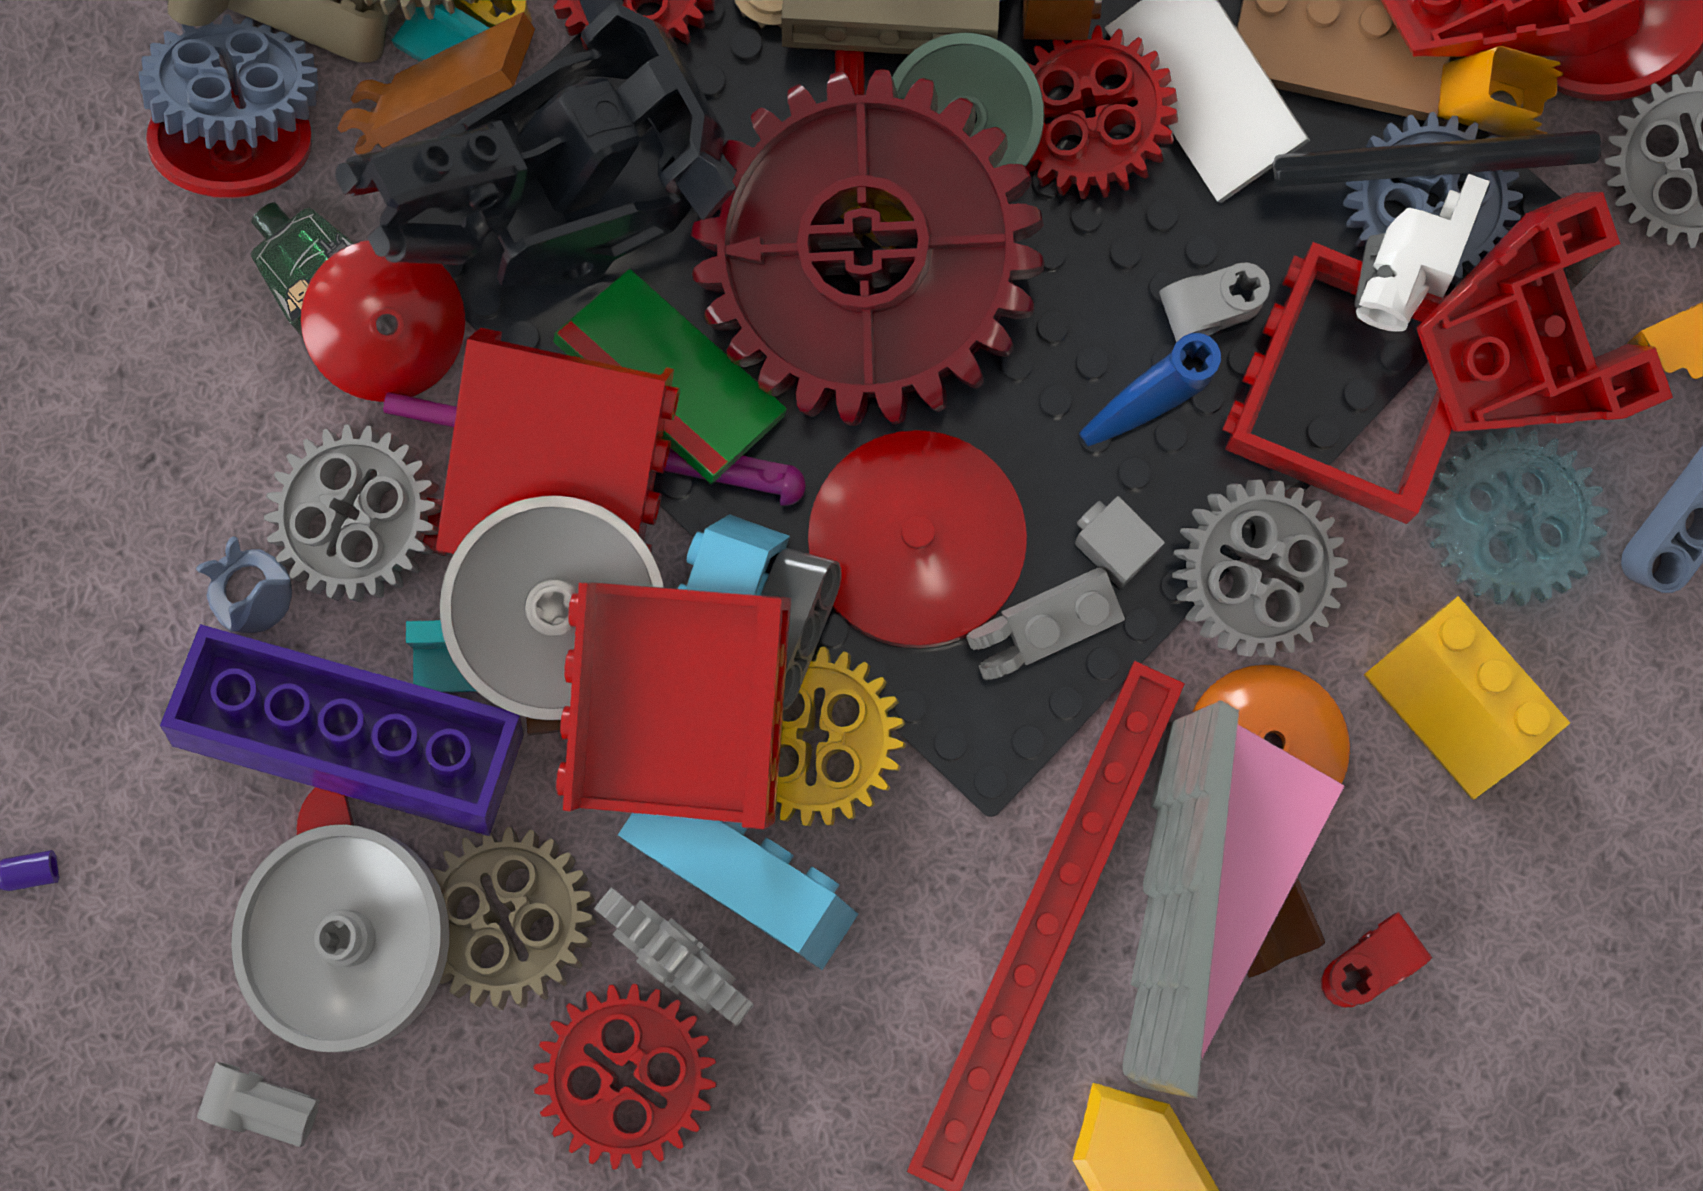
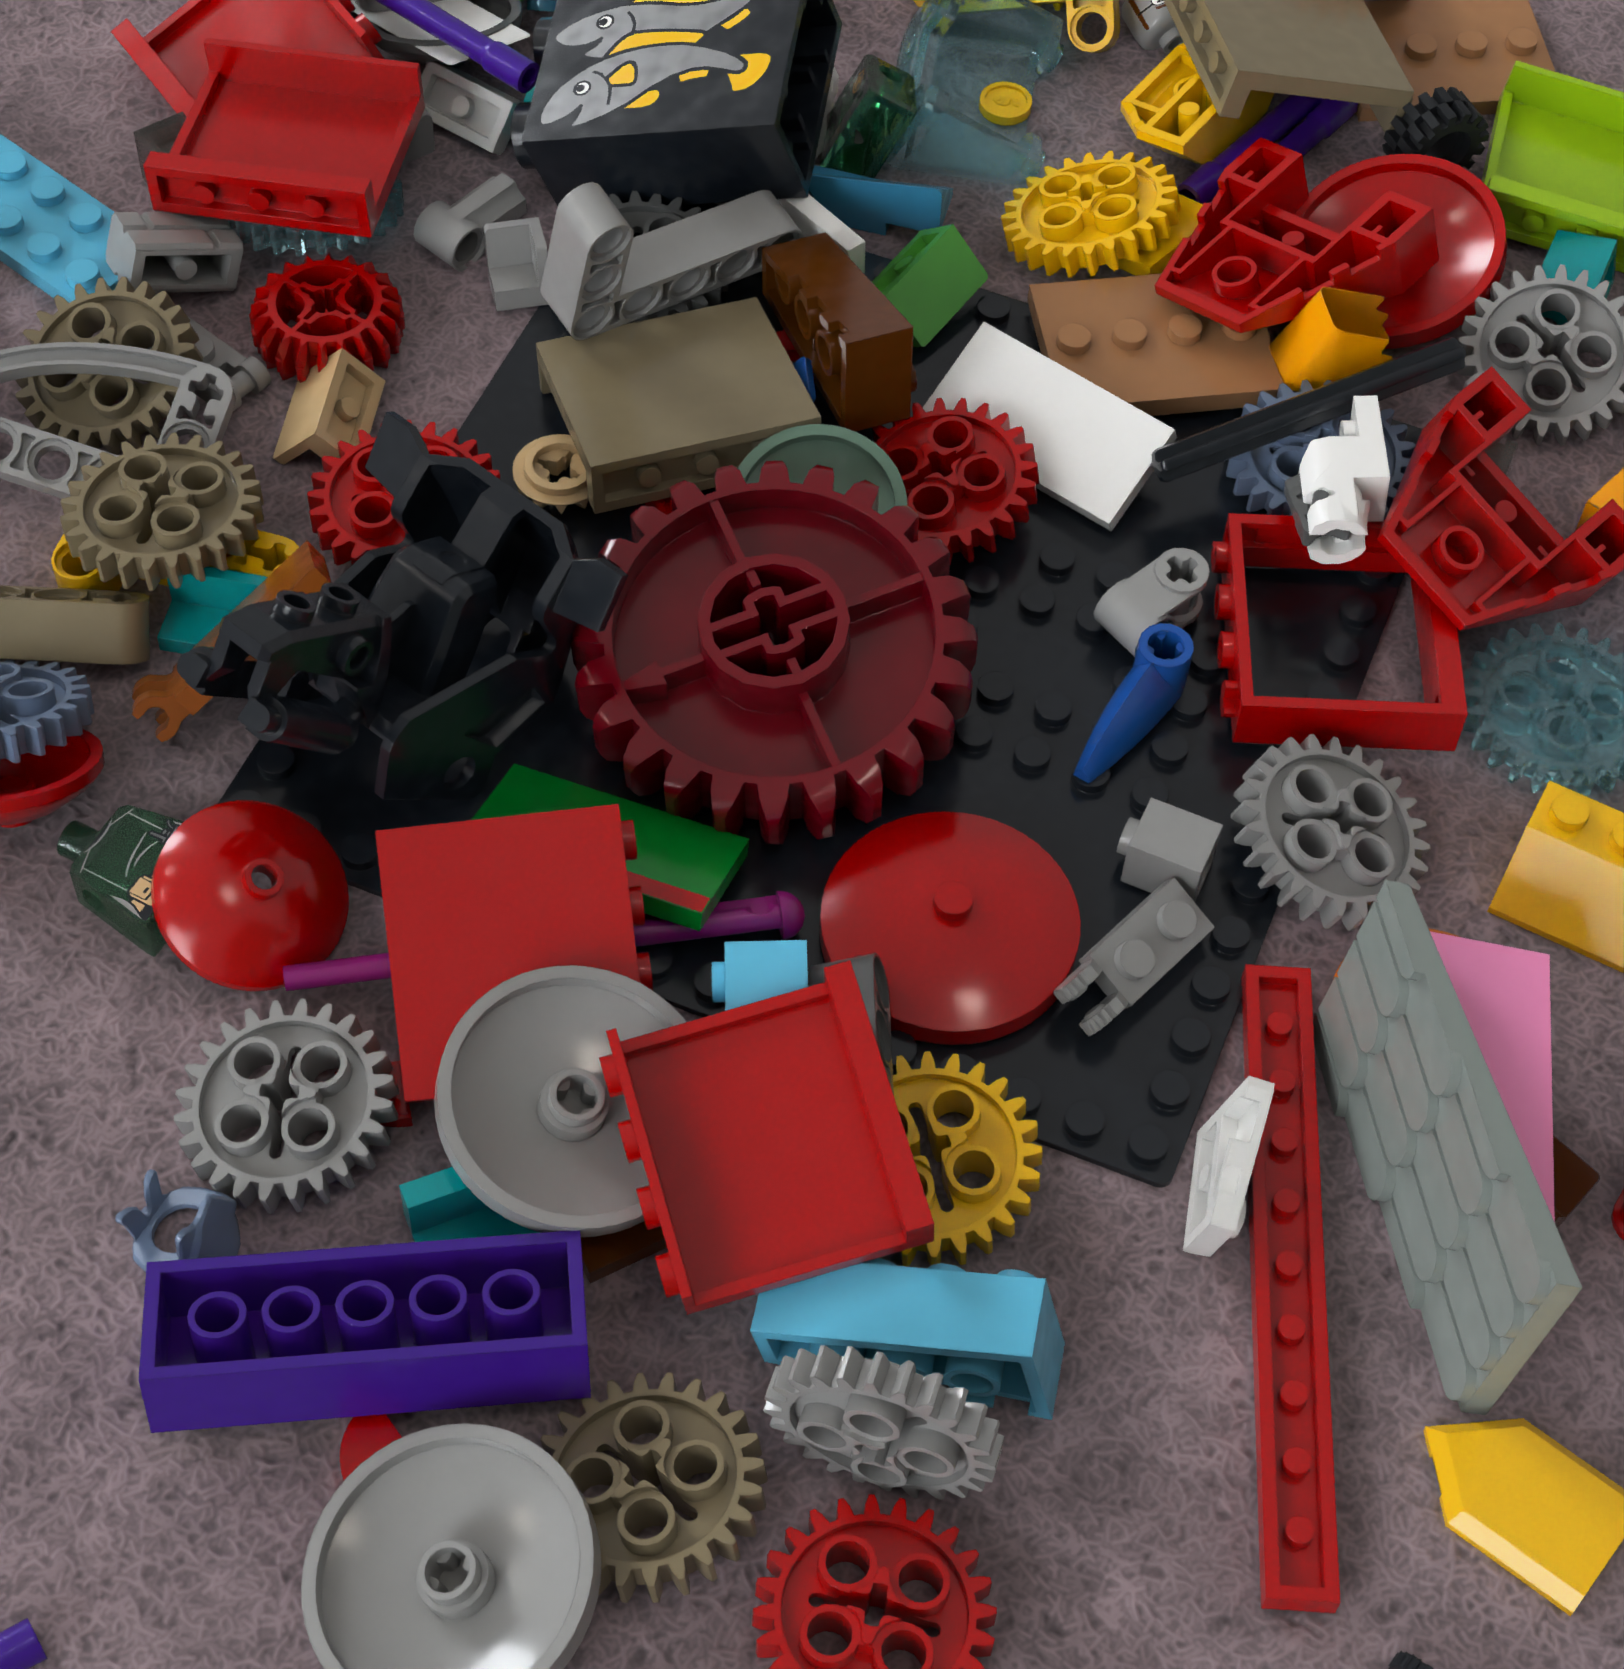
camera: 25 degrees left, 25 degrees down
(1031, 833) = (1224, 1165): none -> white wing

